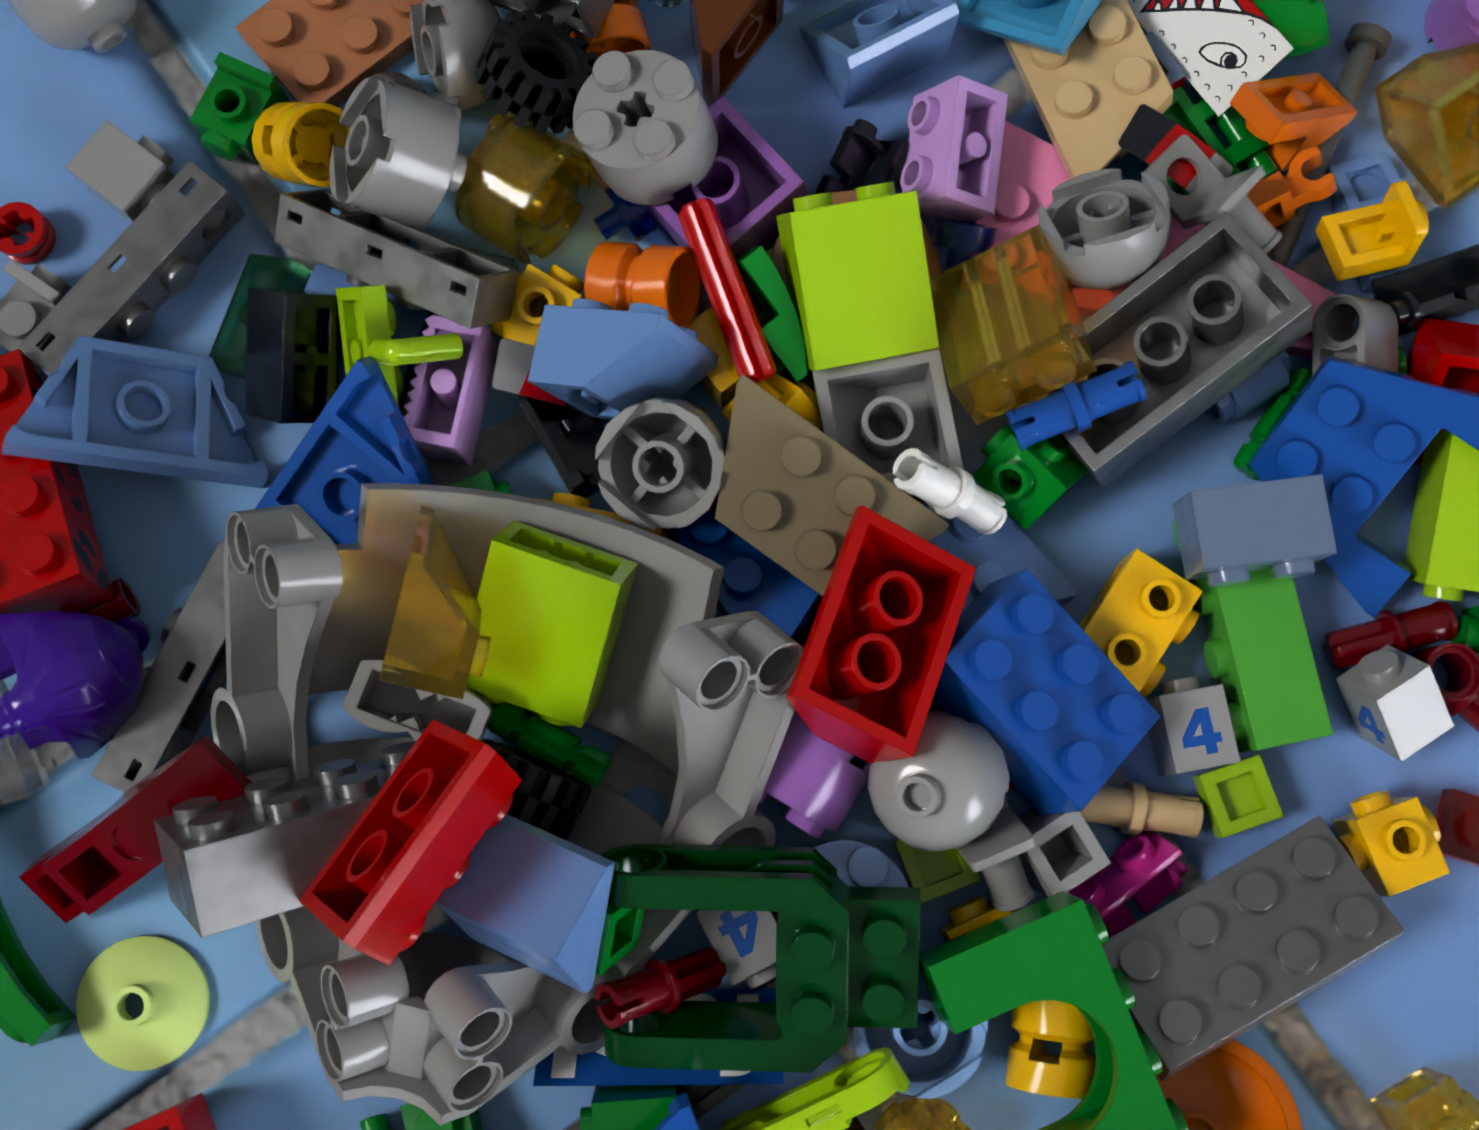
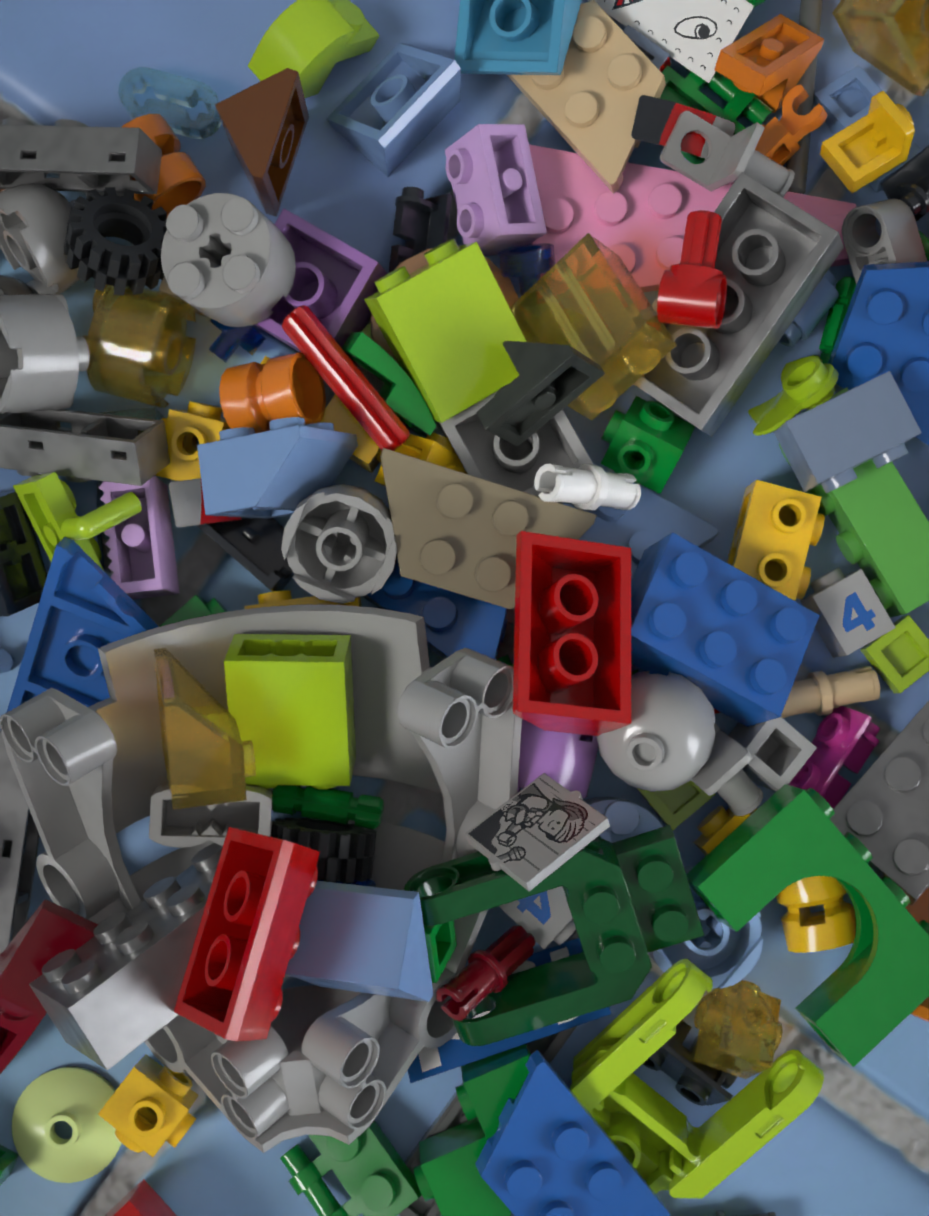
camera: 20 degrees left, 5 degrees up
(238, 1012) = (151, 1107): none -> yellow brick
(769, 842) = (537, 831): none -> piece
(942, 362) = (546, 384): none -> pearl dark grey slope
(1076, 405) = (669, 380): blue pin -> none
(1107, 228) = (642, 215): light grey cylinder -> none
(1135, 315) = (695, 290): none -> red axle
(1219, 465) = (804, 385): none -> lime plate

